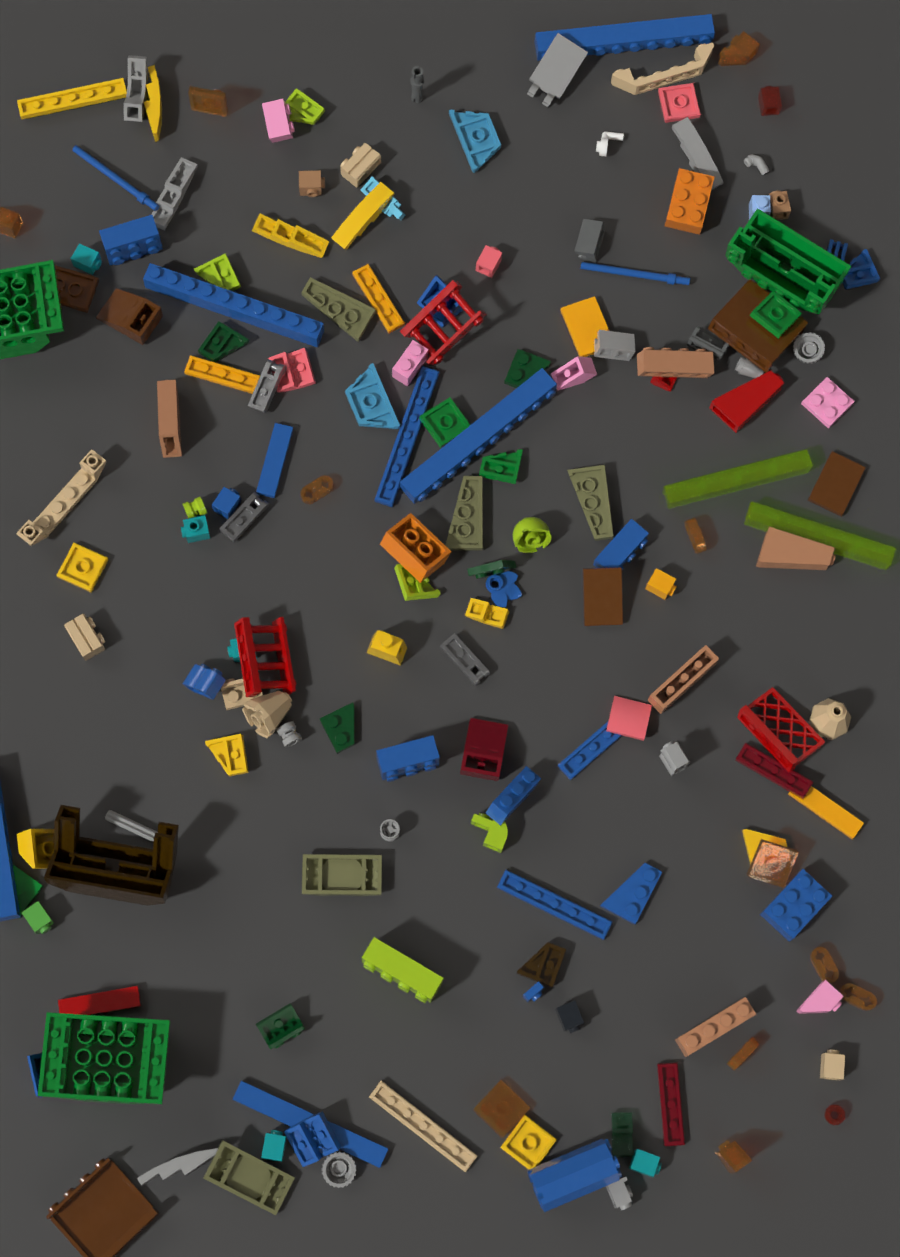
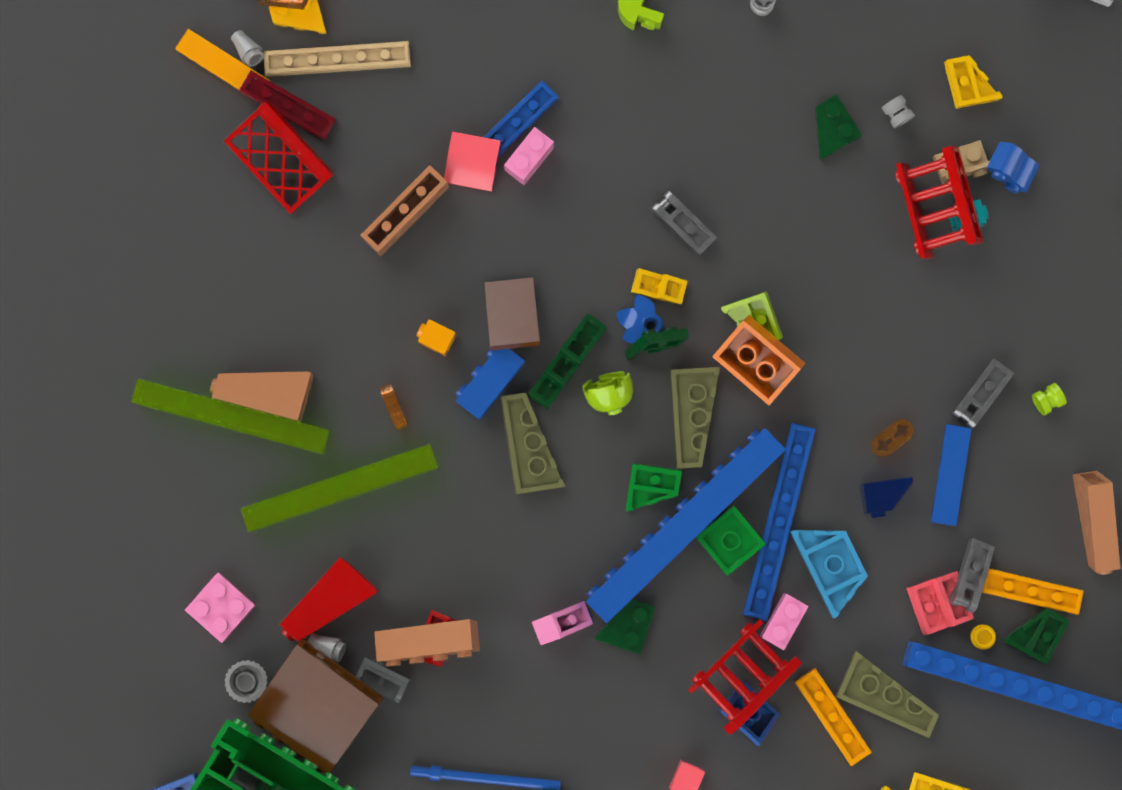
camera: 175 degrees left, 10 degrees up
(195, 529) = (1044, 371): teal brick -> none
(219, 273) = (1050, 735): lime wing -> none
(226, 502) = (1008, 410): blue brick -> none
(262, 345) = (983, 637): none -> yellow plate
(267, 712) = (927, 136): tan cone -> none
(327, 447) = (883, 495): none -> clear blue slope
(387, 647) = (784, 228): yellow torso -> none
(407, 758) = (748, 84): blue brick -> none
(484, 749) = (653, 107): dark red slope -> none
(513, 795) = (613, 46): blue brick -> none
(560, 561) = (567, 361): none -> dark green slope
(583, 323) = (547, 694): light orange tile -> none
(584, 717) = (529, 156): none -> bright pink brick
(614, 345) = (509, 666): light grey hinge -> none
(674, 758) = (414, 107): light grey brick -> none
(733, 808) = (337, 58): none -> tan tile
(775, 314) = (292, 718): green plate -> none
(806, 818) = (247, 49): none -> light grey cone
(830, 719) = (217, 178): tan cone -> none
(836, 483) = (208, 493): reddish brown tile -> none

